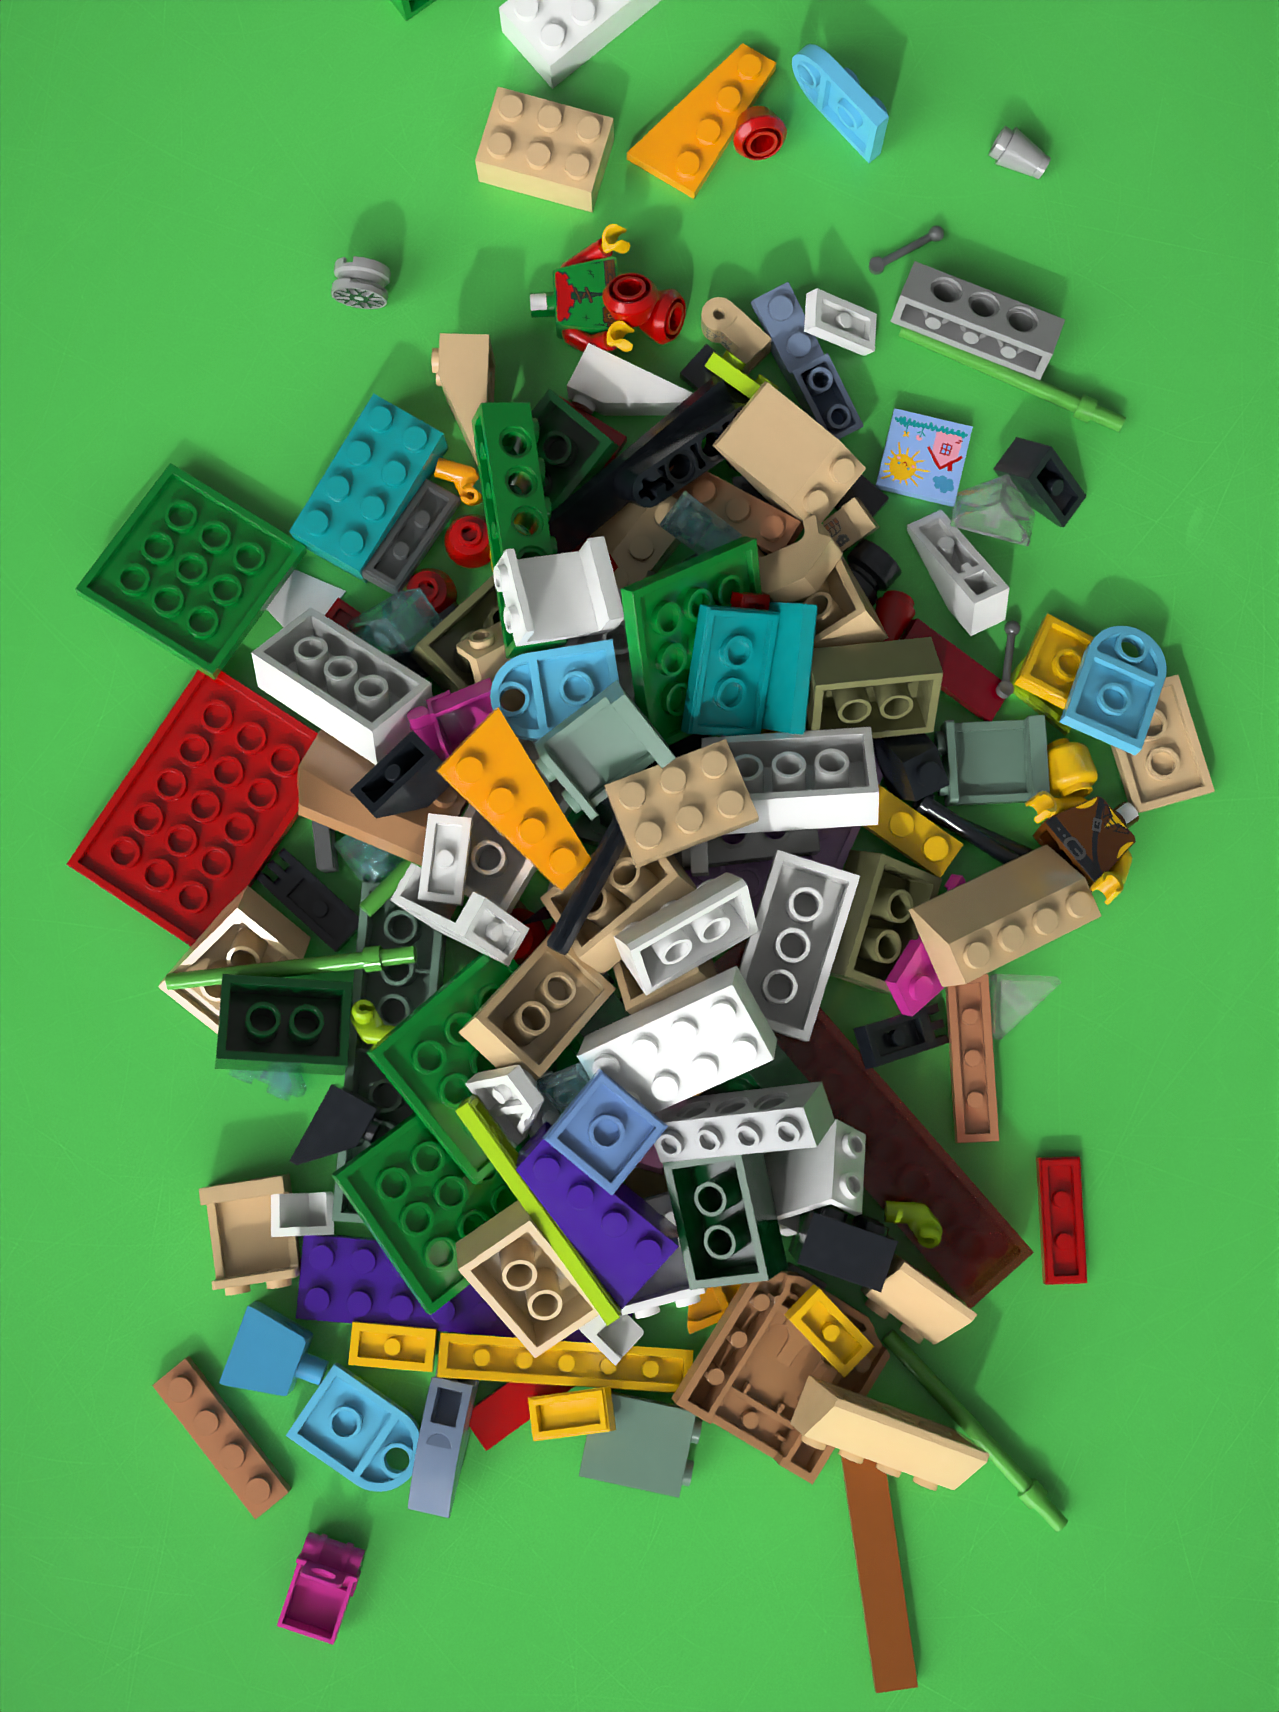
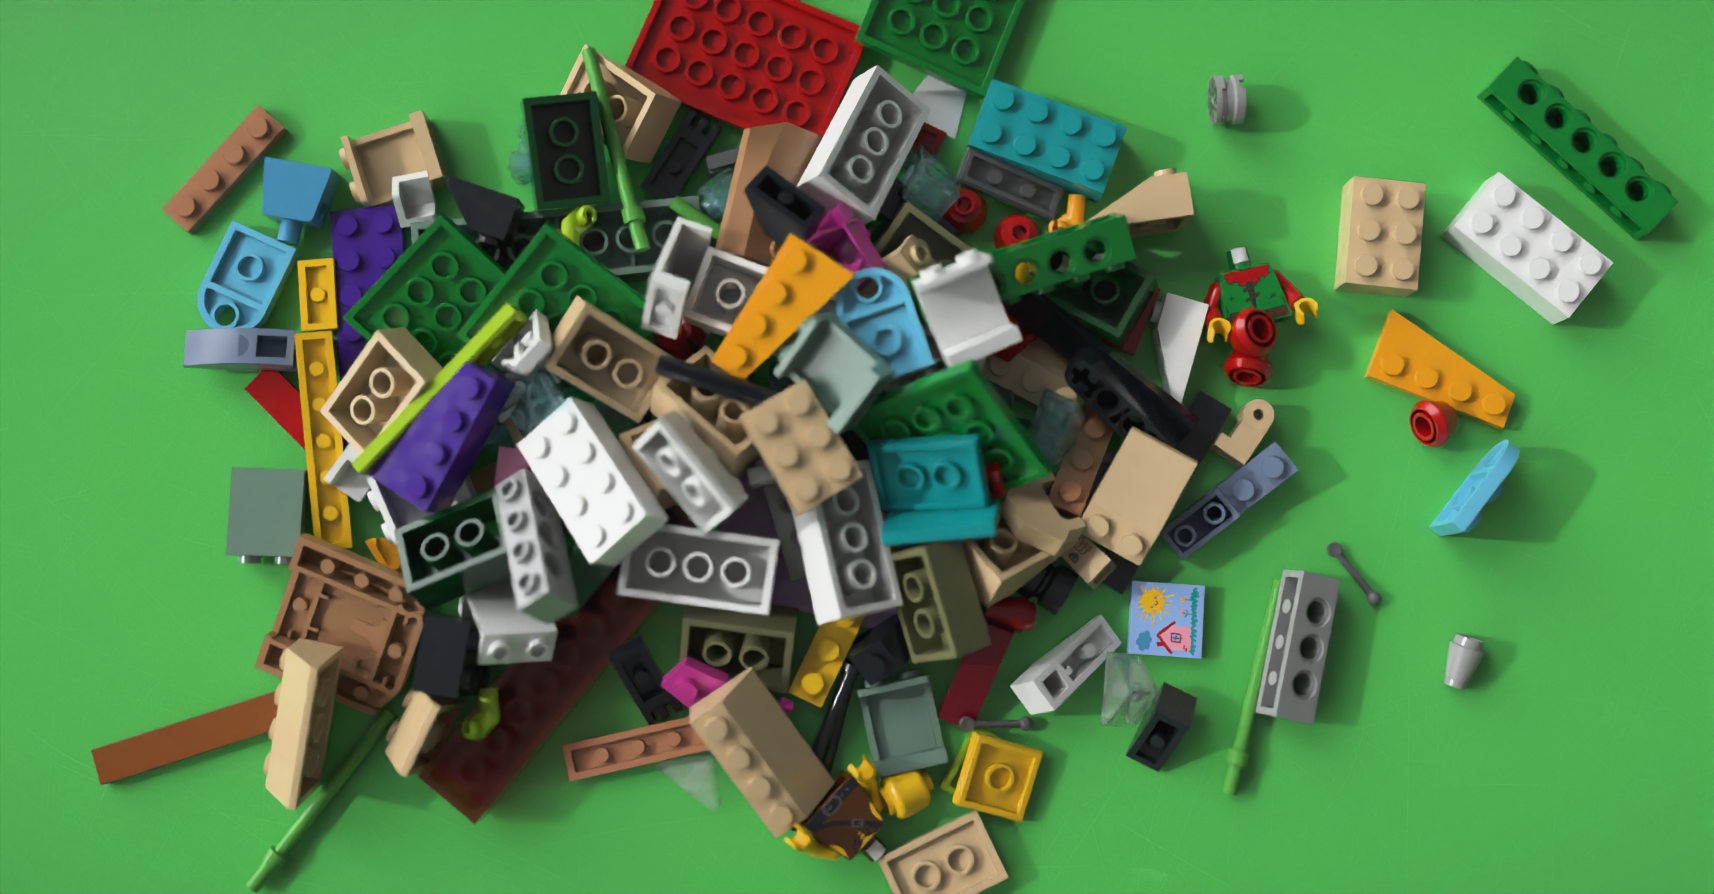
camera: 80 degrees right, 0 degrees up
(321, 1587) = (113, 273): dark pink piece -> none
(445, 859) = (719, 256): white plate -> none
(572, 1413) = (282, 452): yellow tile -> none
(605, 1131) = (508, 431): medium blue tile -> none
(730, 369) = (1207, 432): lime plate -> none
(829, 1330) = (380, 656): yellow plate -> none
(840, 322) = (1272, 523): white plate -> none
(1061, 1220) = (512, 848): red tile -> none
(1115, 692) = (980, 820): medium azure plate -> none

